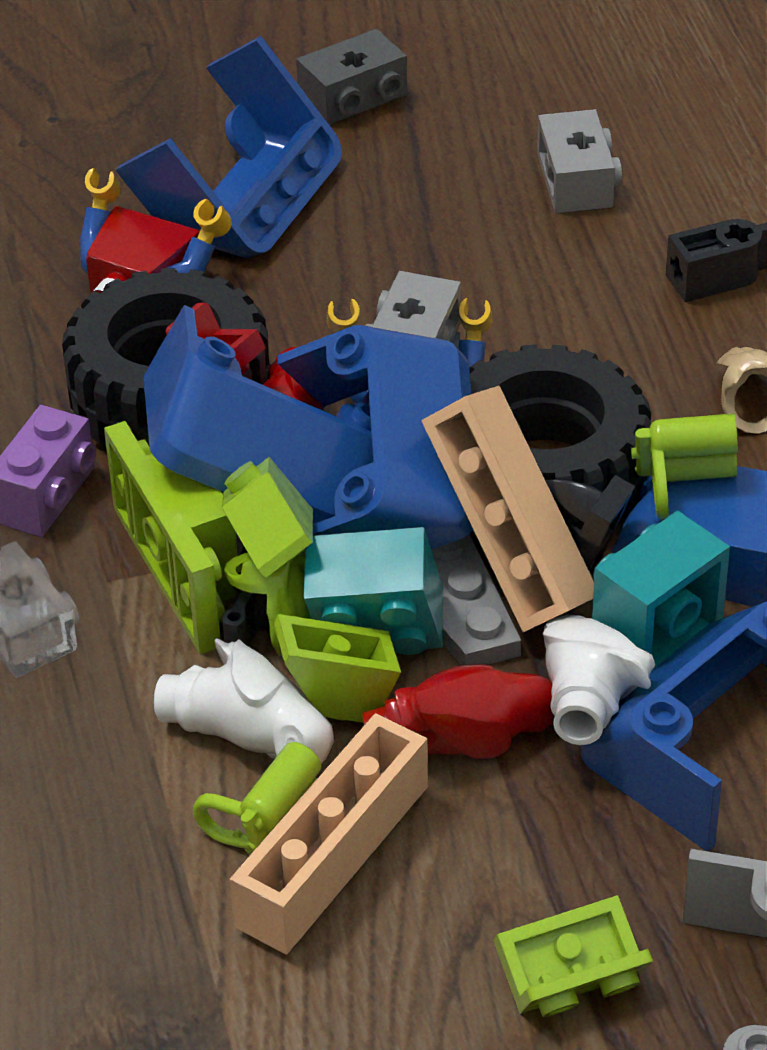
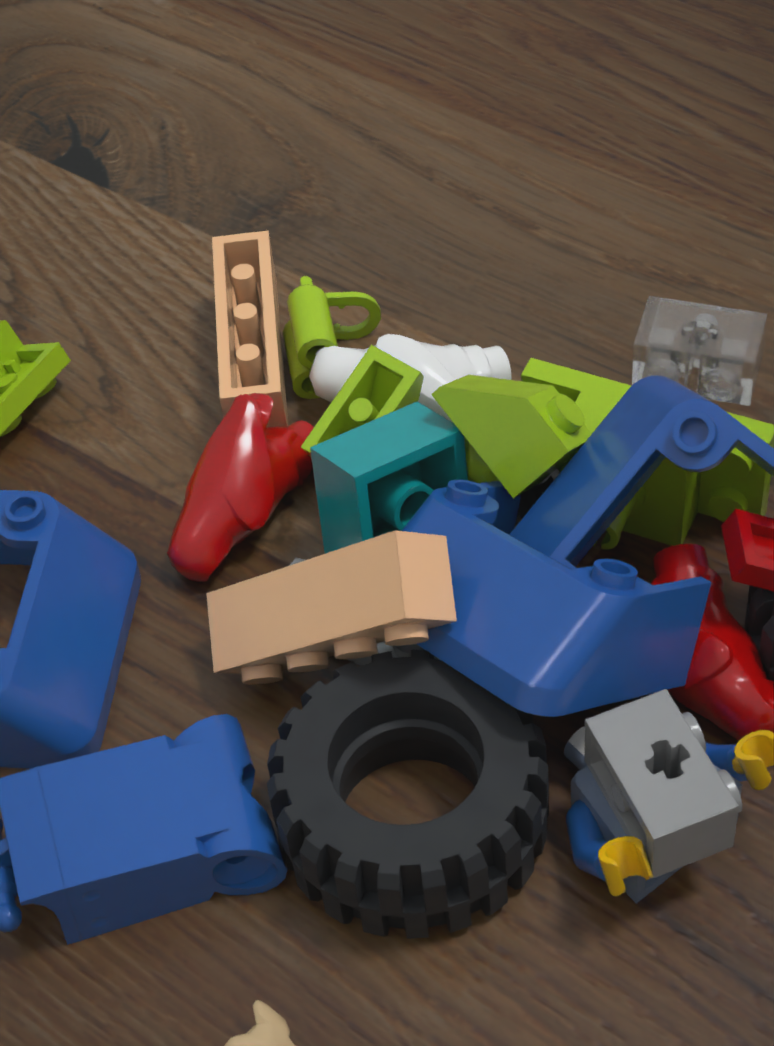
camera: 145 degrees right, 5 degrees up
(589, 674) = (139, 555): white animal -> none
(593, 513) = (259, 688): black tile -> none
(663, 585) = (137, 664): teal brick -> none
(685, 451) = (198, 784): lime piece -> none

